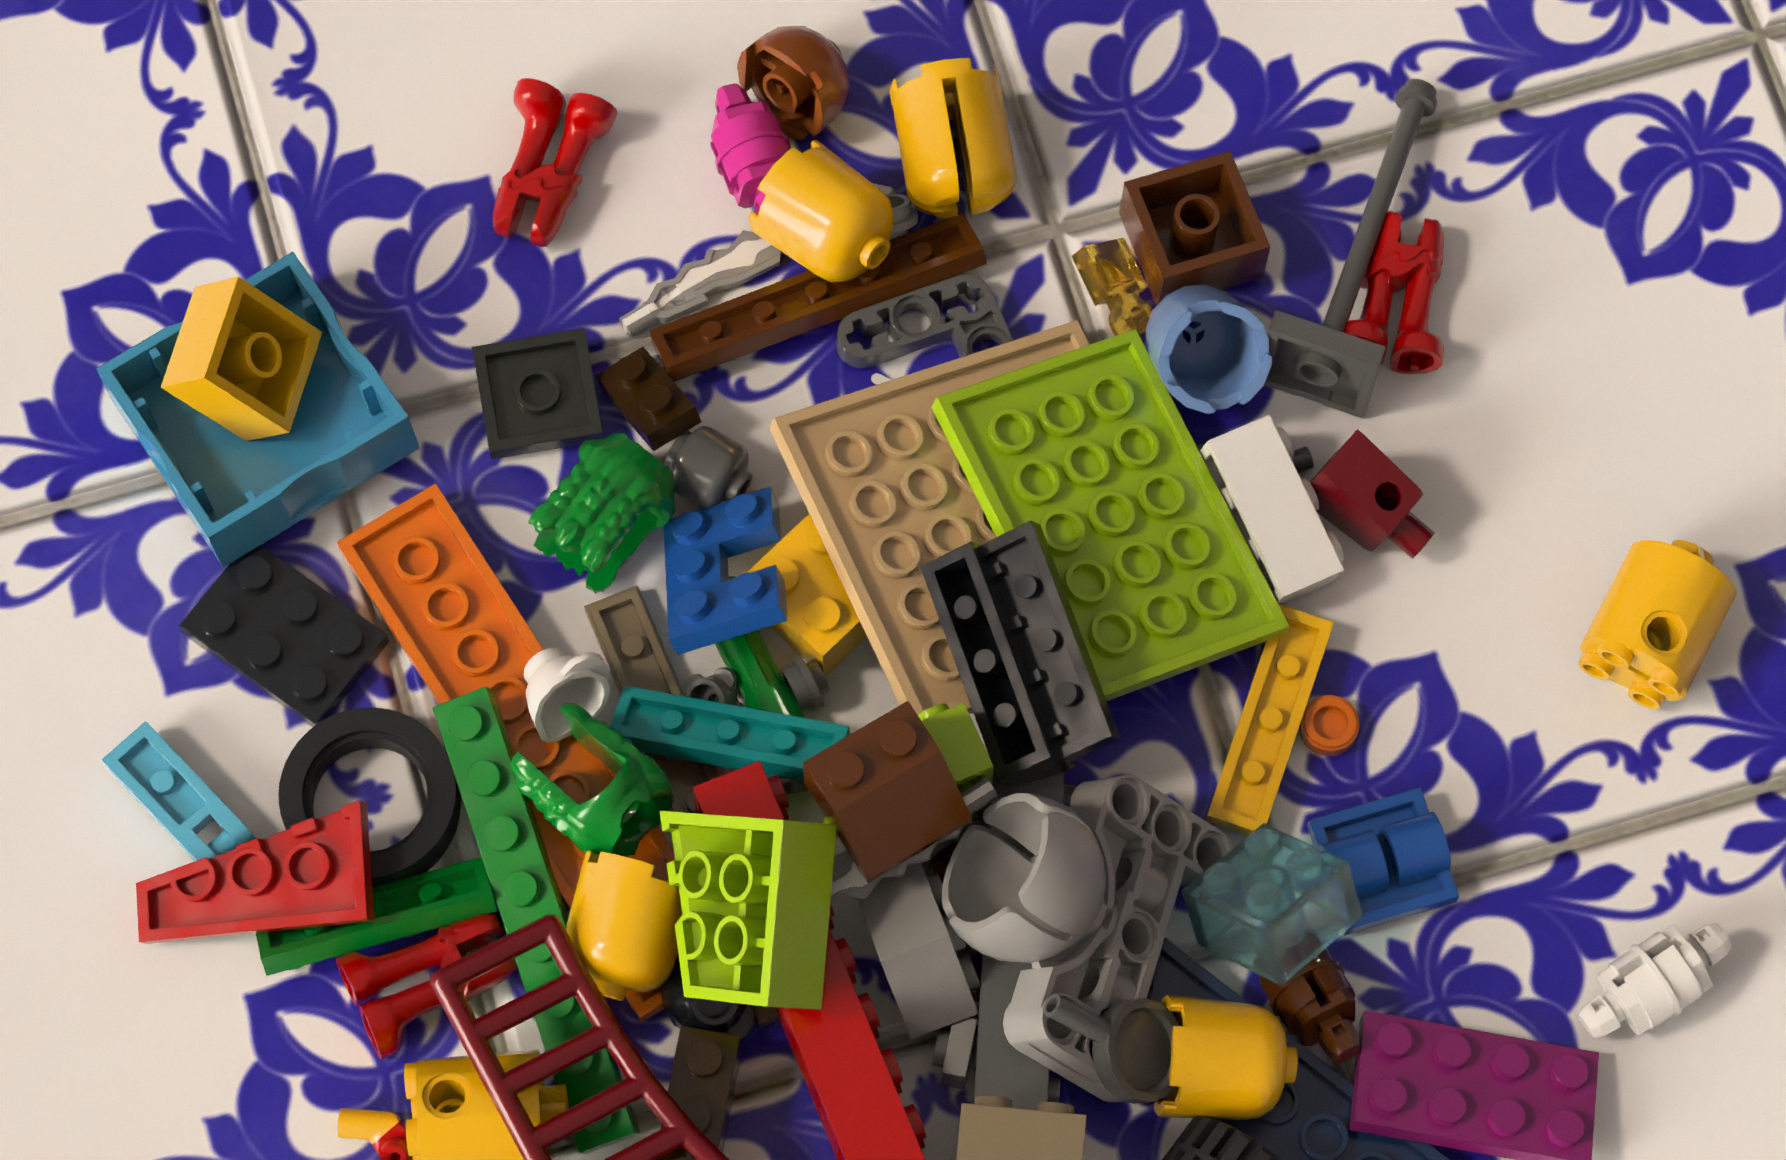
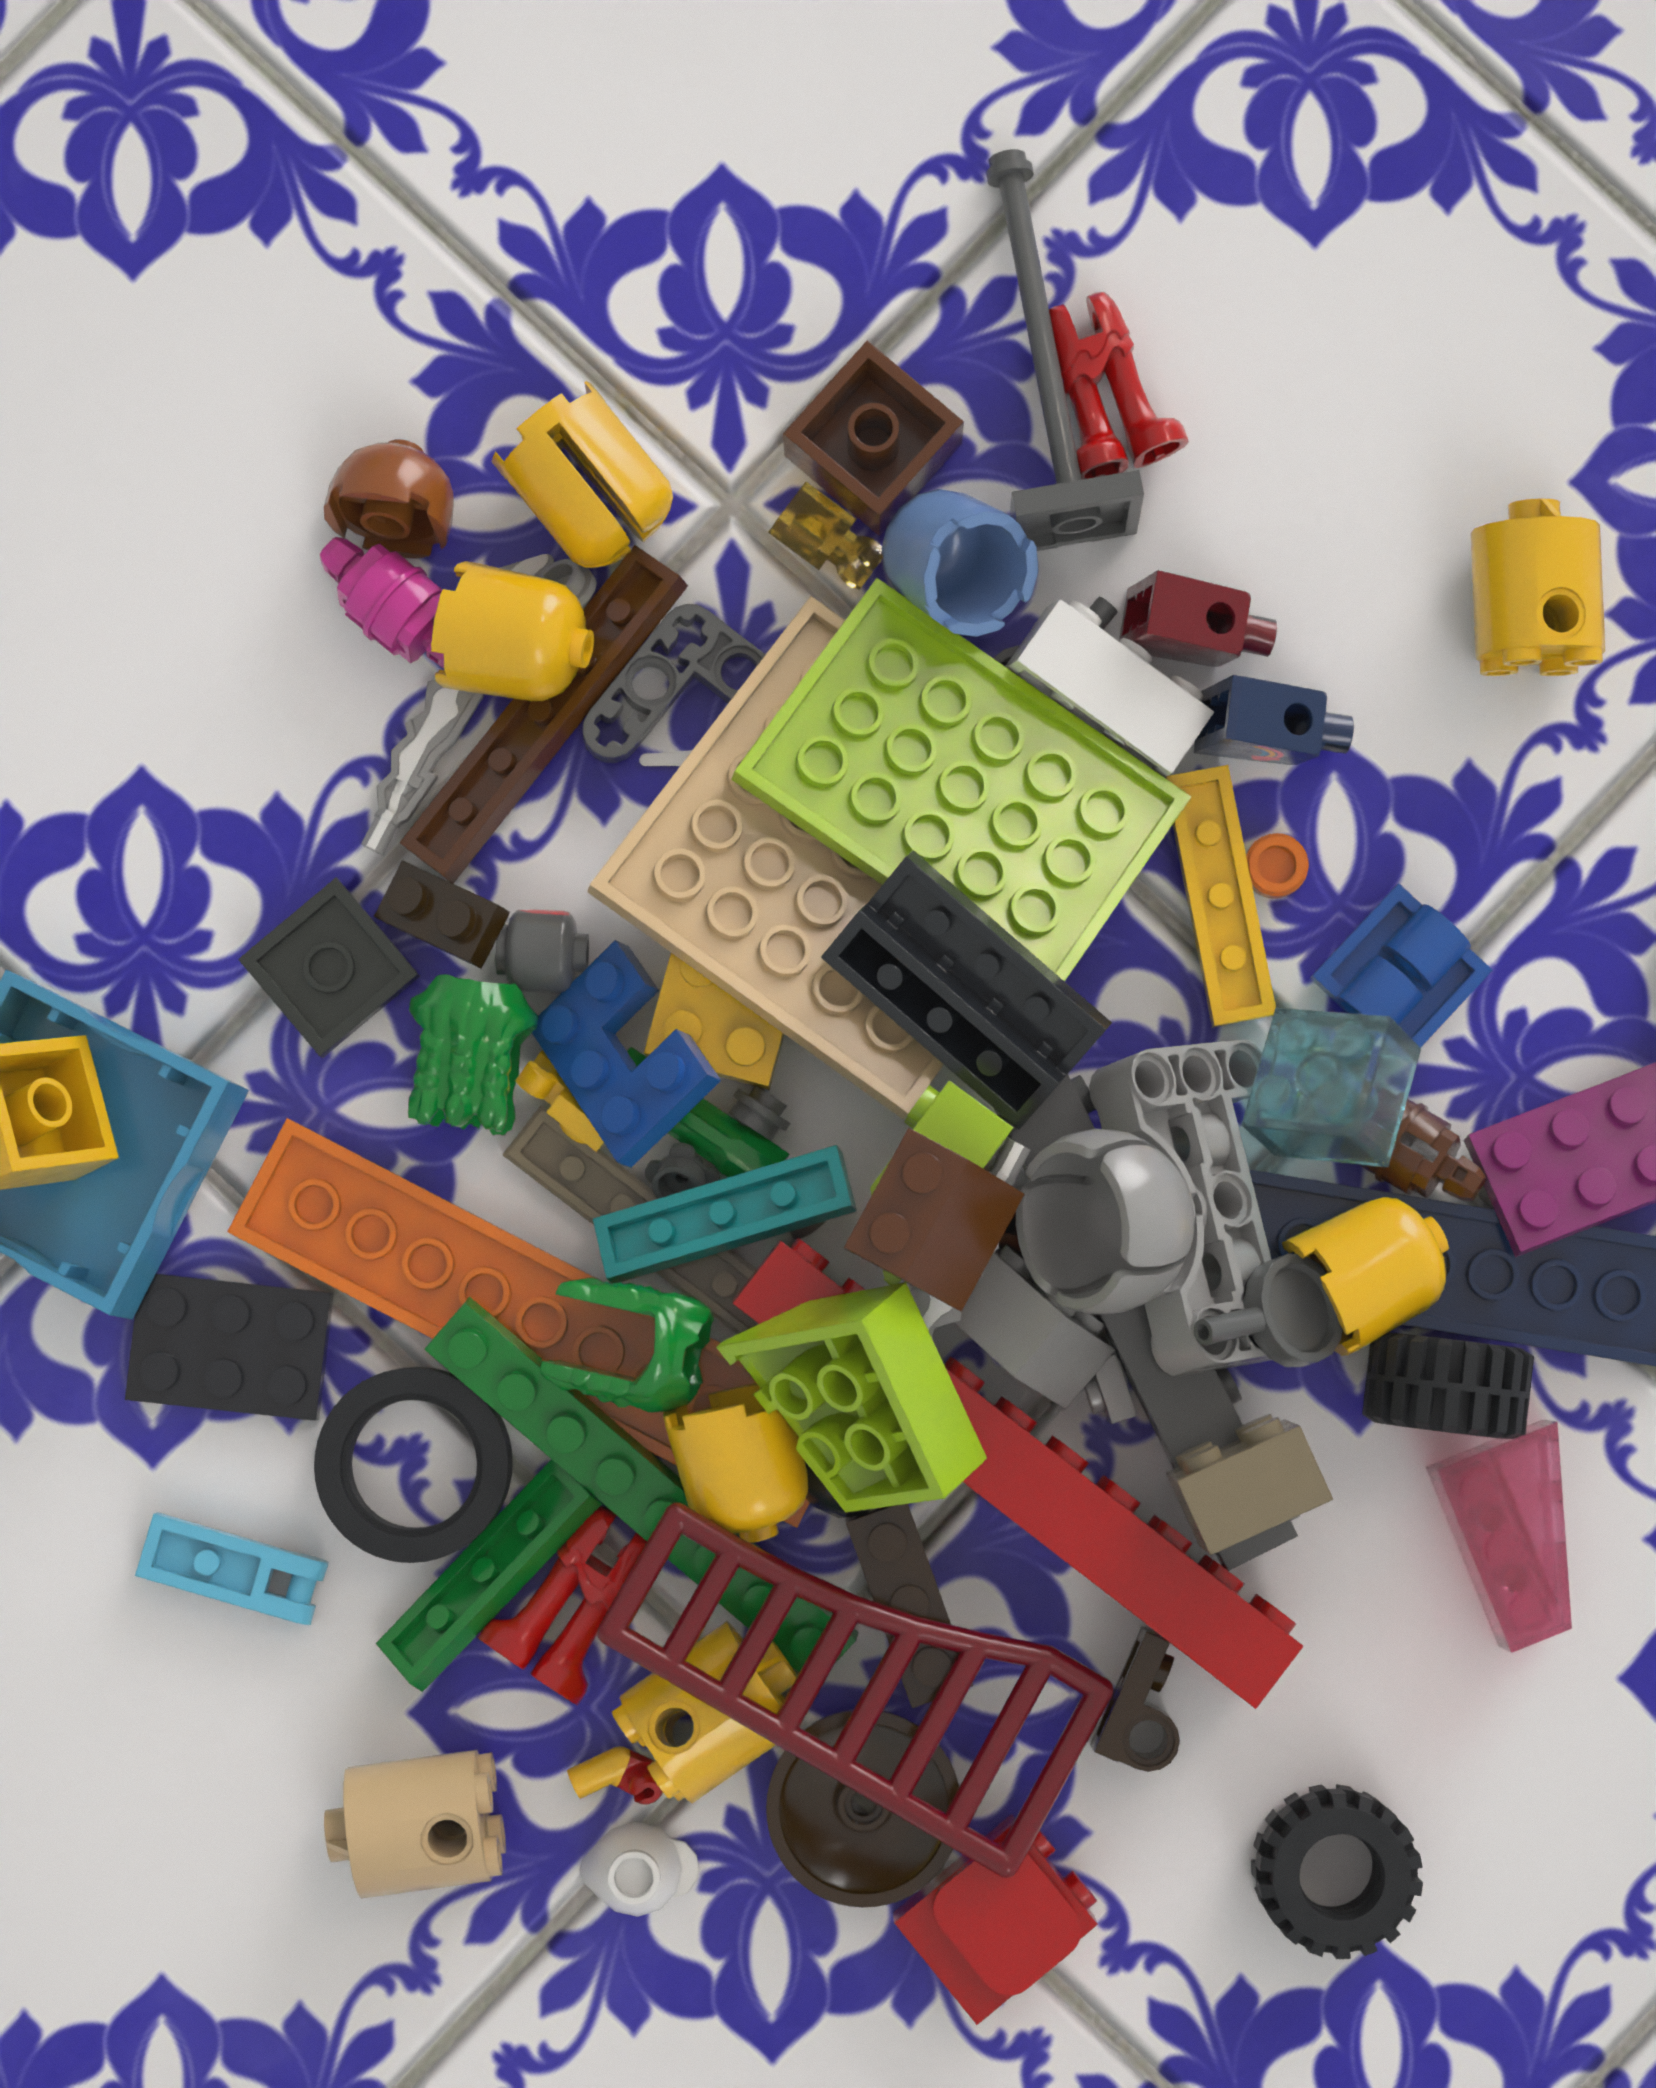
camera: 30 degrees left, 15 degrees up
(178, 1065) = (418, 1824): none -> tan cylinder
(276, 883) = (382, 1602): red wing -> none
(555, 183) = (214, 747): red piece -> none
(561, 680) = (539, 1260): white piece -> none
(650, 566) = (543, 1082): none -> yellow plate
(1385, 605) = (1270, 722): none -> dark blue torso

